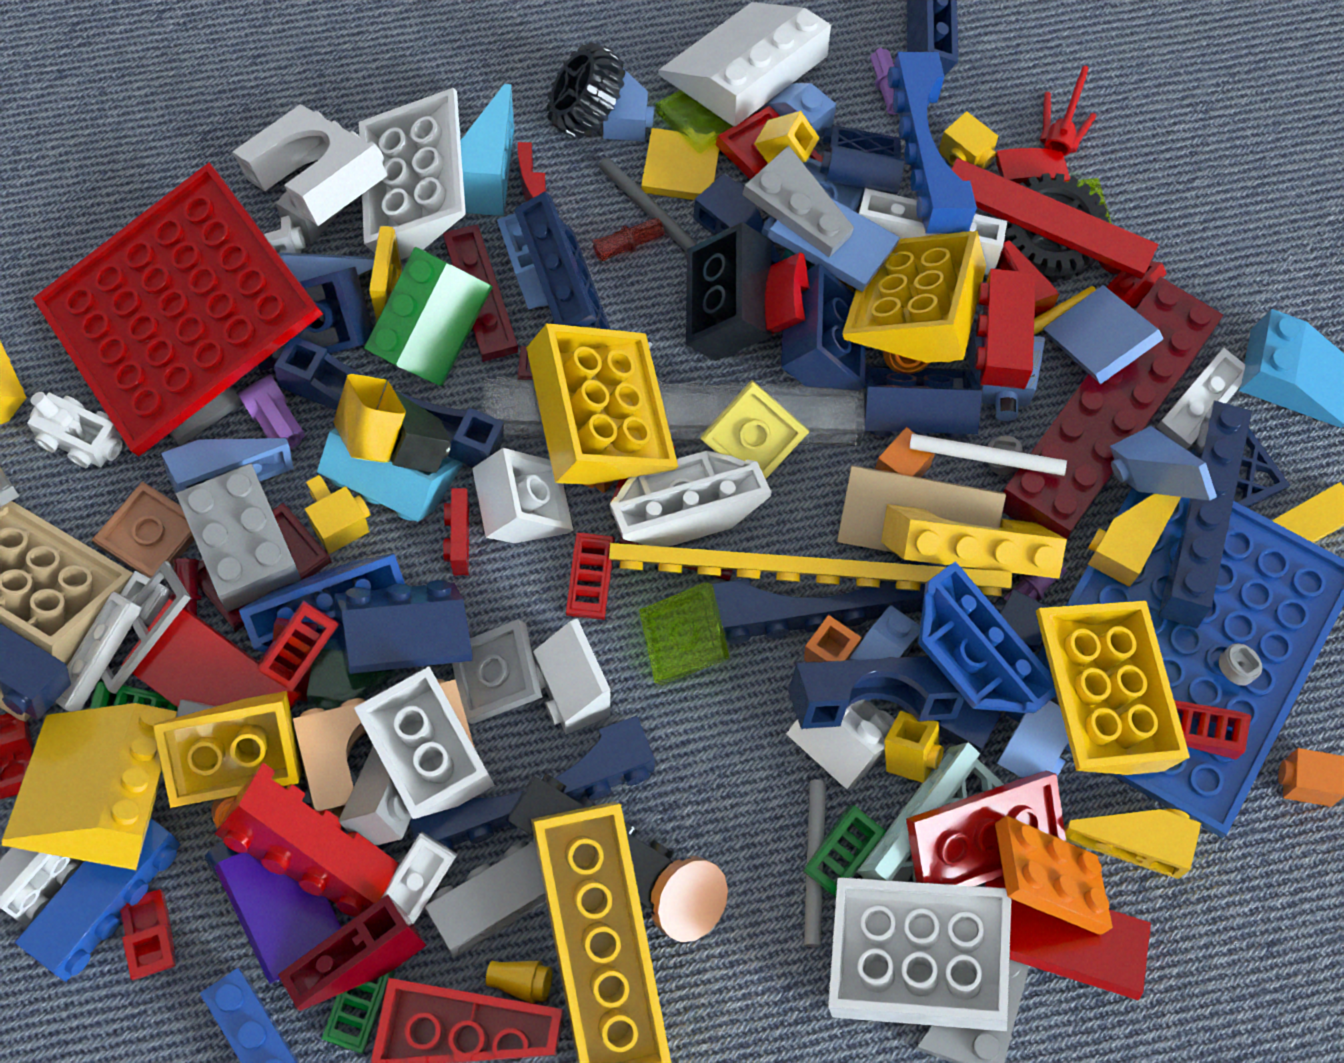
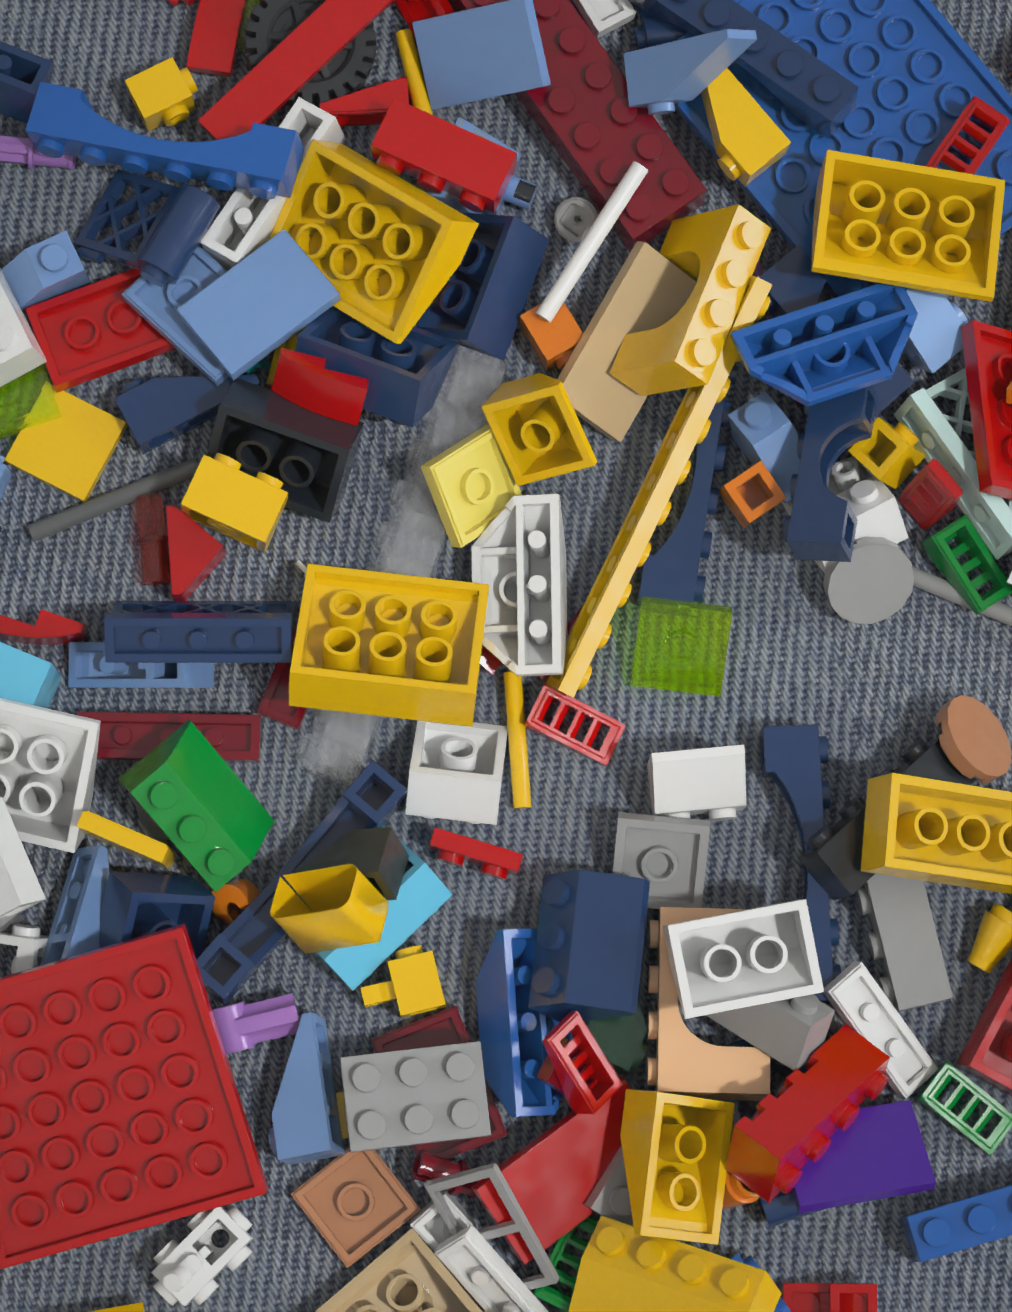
camera: 70 degrees left, 15 degrees up
(353, 955) = (936, 1096): dark red slope -> none
(366, 363) = (231, 896): none -> orange piece
(560, 539) = (517, 741): none -> yellow bar
(625, 262) = (191, 553): none -> red slope
(673, 268) = (234, 501): none -> yellow slope
(785, 131) = (106, 309): yellow brick -> none
(796, 767) = (872, 583): none -> light grey tile
(799, 202) = (207, 327): light grey wing -> none
(815, 459) = (537, 429): none -> yellow slope
(890, 795) = (930, 495): none -> red slope
(1240, 664) = (913, 79): light grey tile -> none

